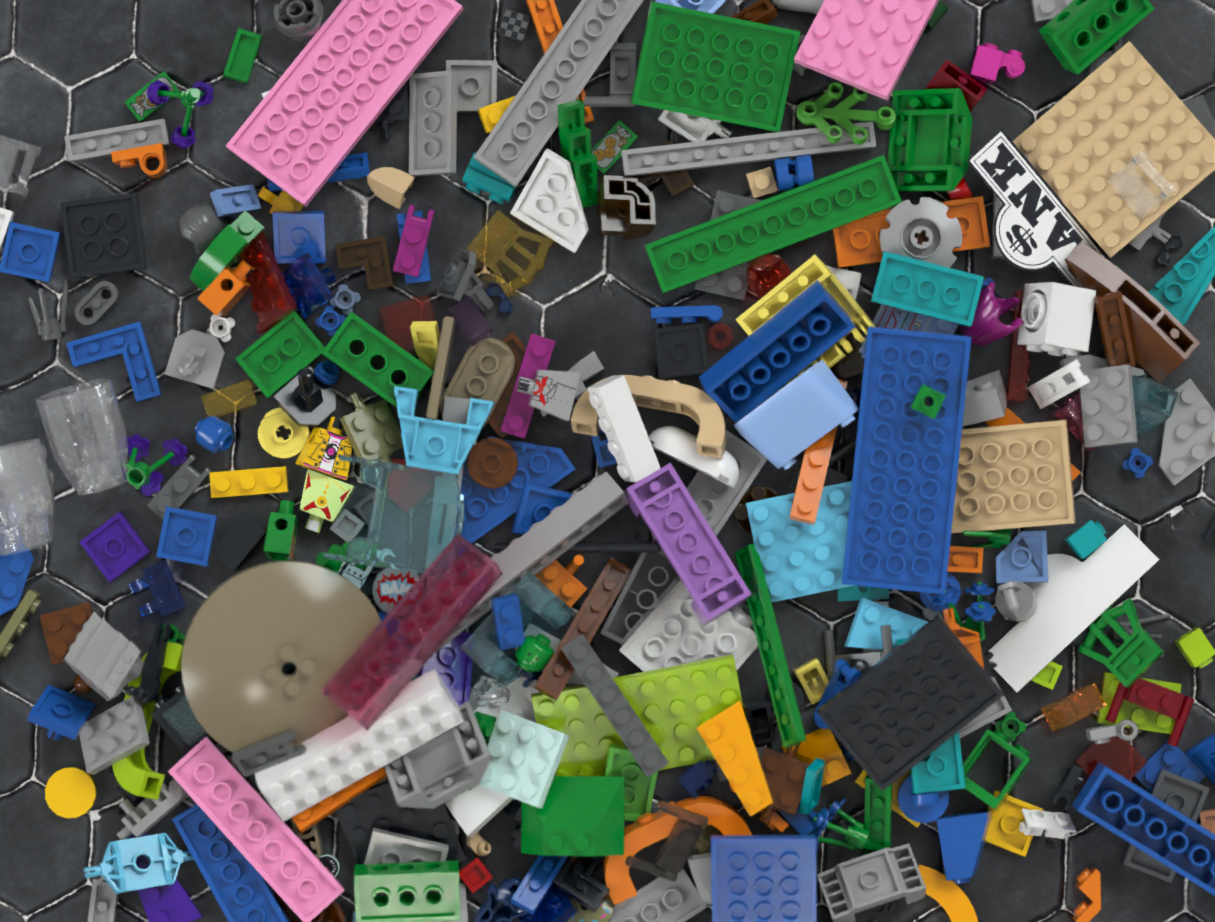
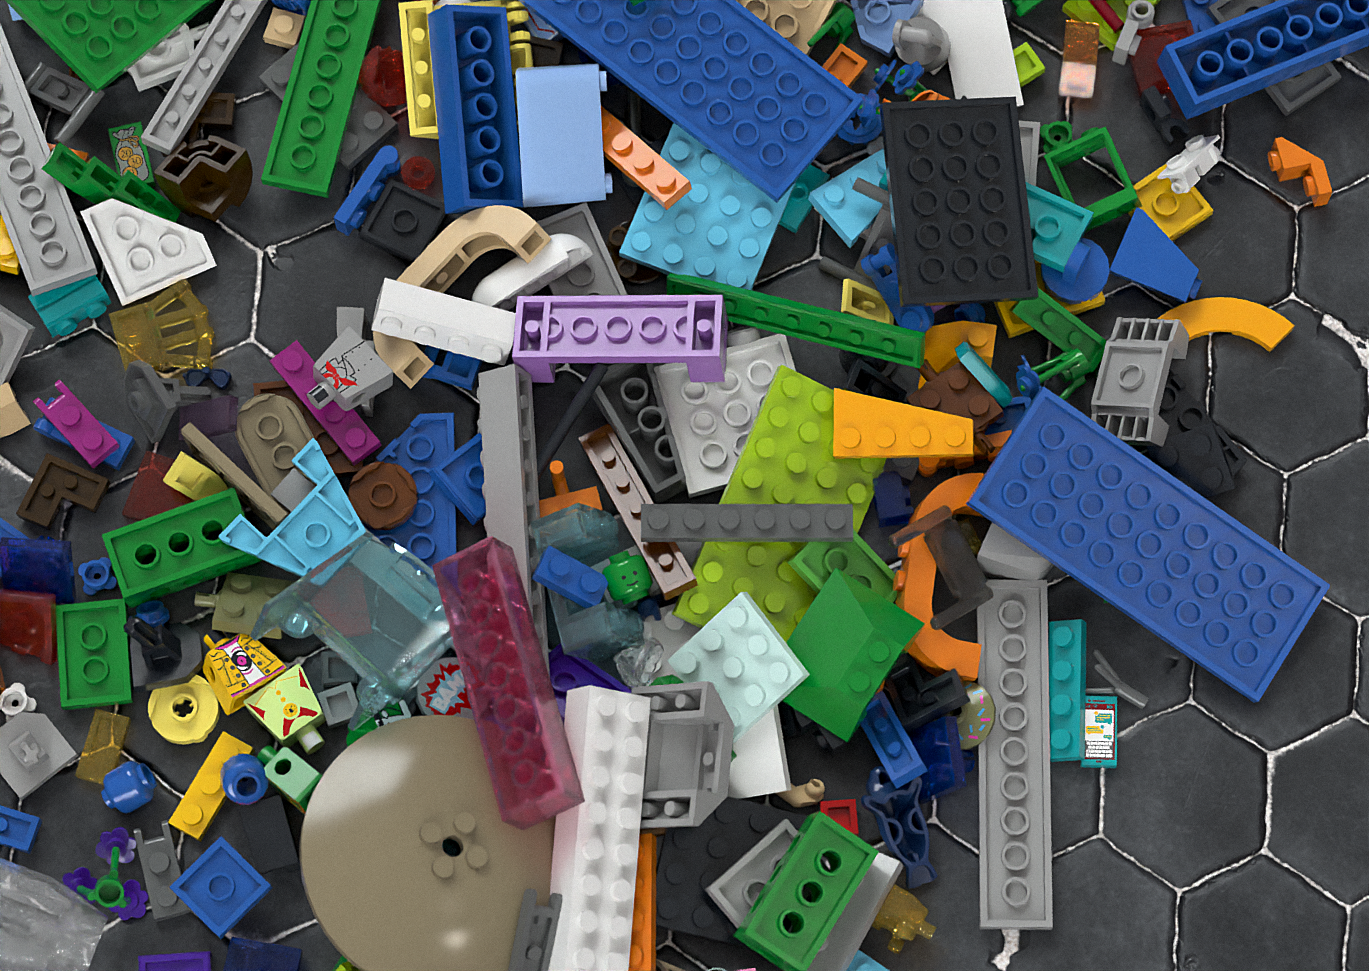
camera: 55 degrees left, 15 degrees down
(261, 503) = (243, 779): none -> blue head
(337, 300) = (83, 535): sand blue plate -> none

